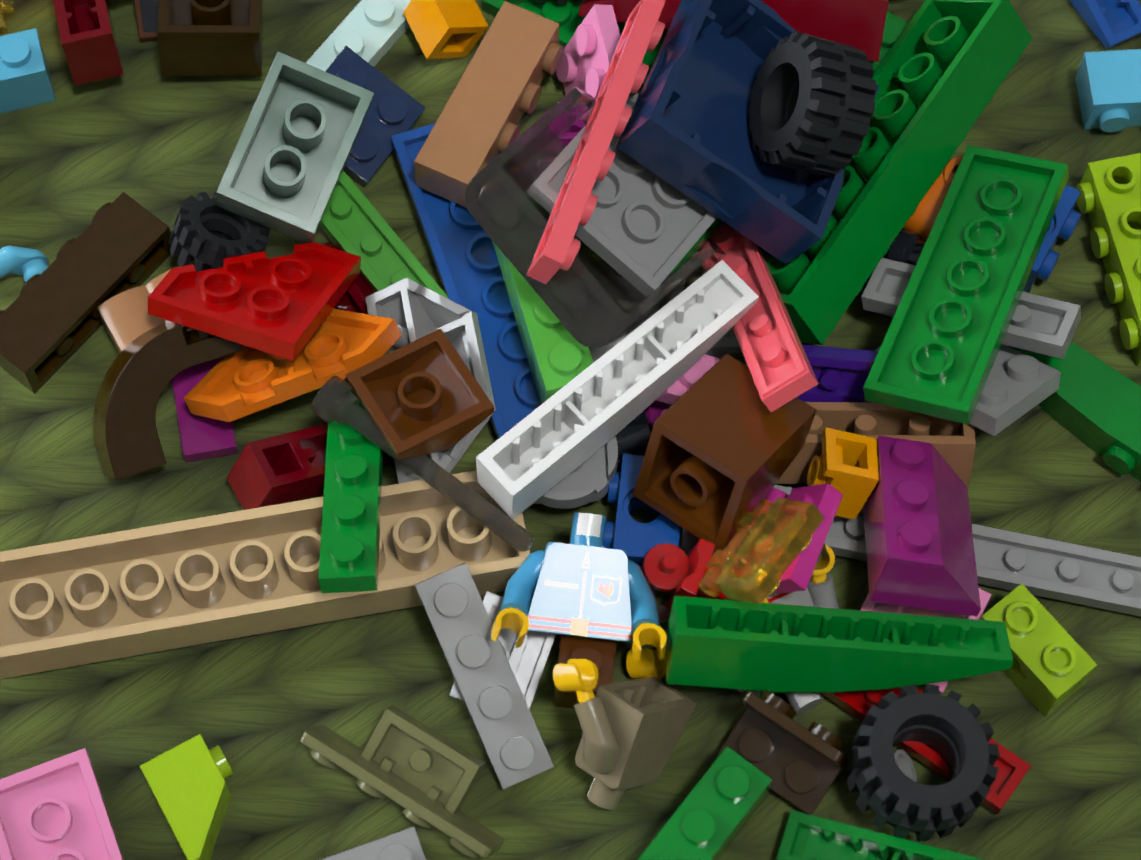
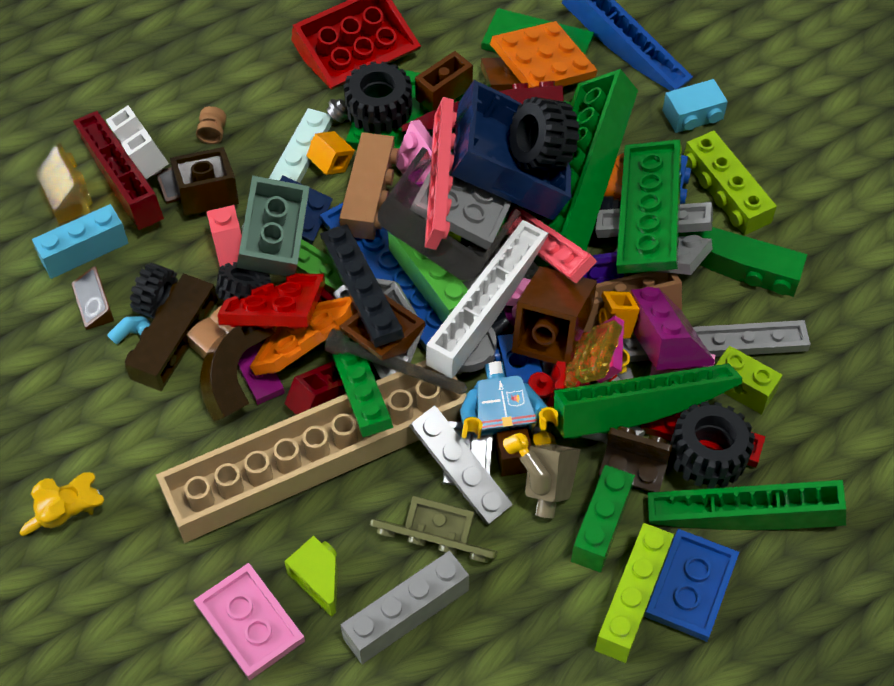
camera: 15 degrees left, 10 degrees down
(62, 207) = (151, 289): none -> black tyre
(216, 126) = (225, 234): none -> coral slope
(408, 306) = (362, 286): none -> black plate

